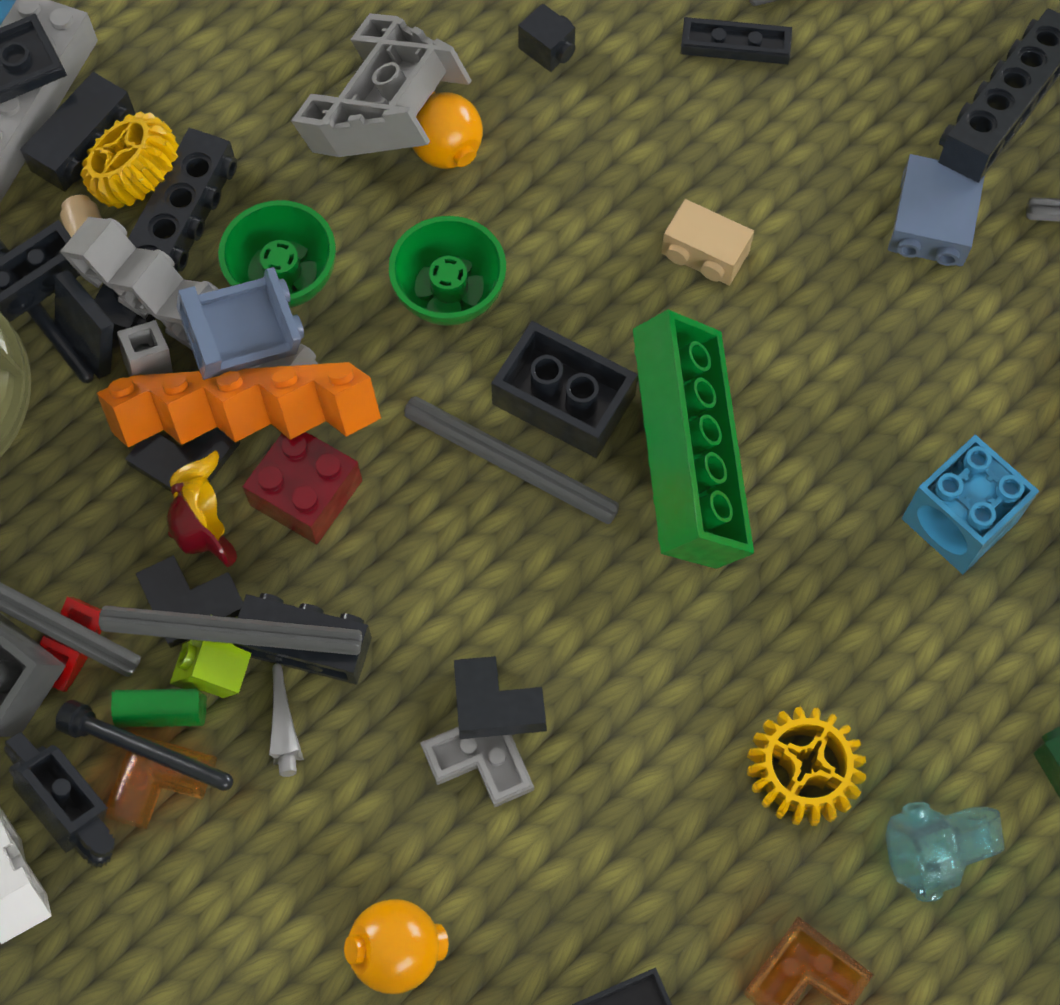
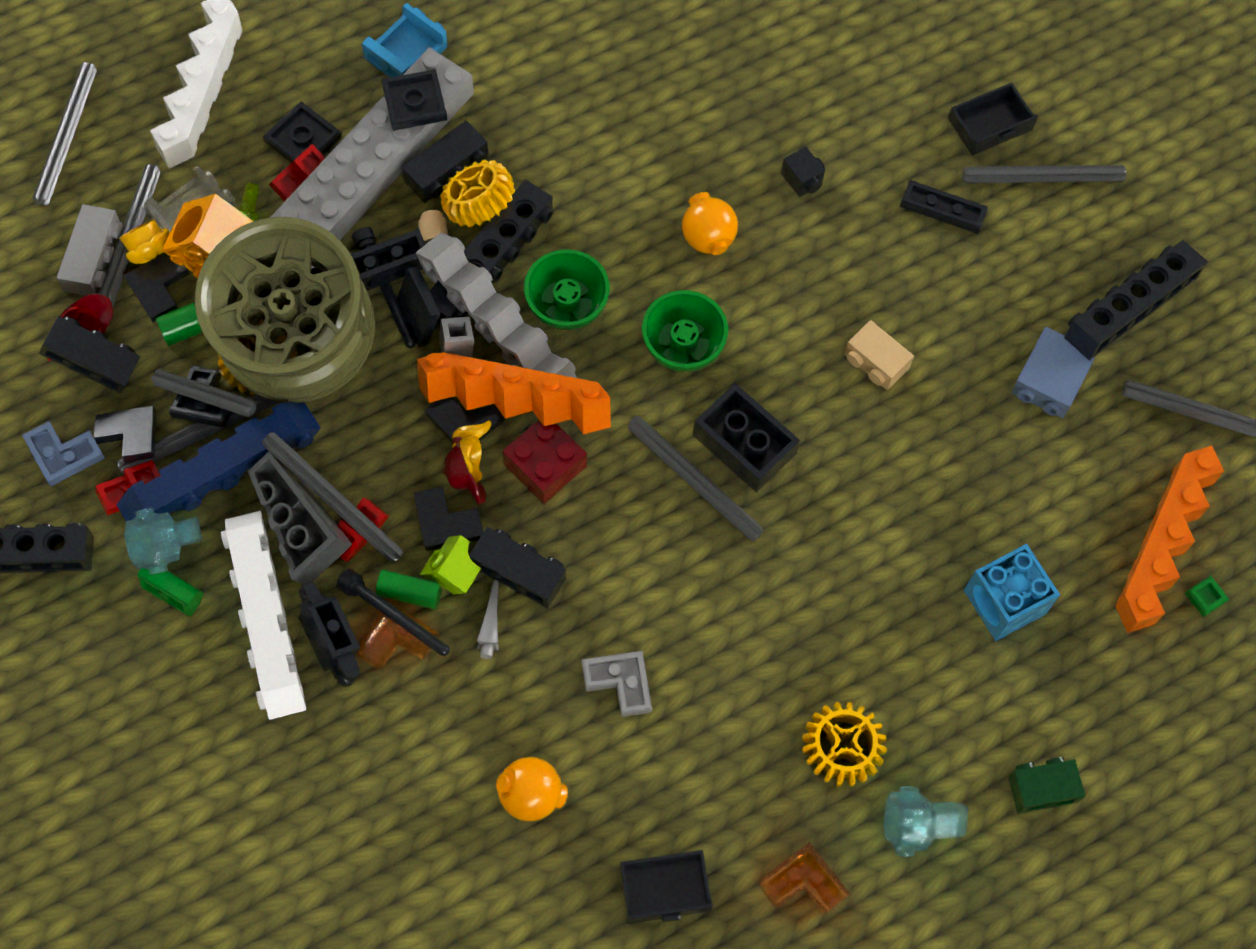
camera: 10 degrees right, 0 degrees up
(230, 630) = (472, 549): dark grey axle -> none
(240, 324) = (528, 336): sand blue panel -> none
(385, 93) = (672, 189): light grey wedge -> none
(491, 712) = (634, 650): black tile -> none
(692, 441) = (826, 497): green brick -> none

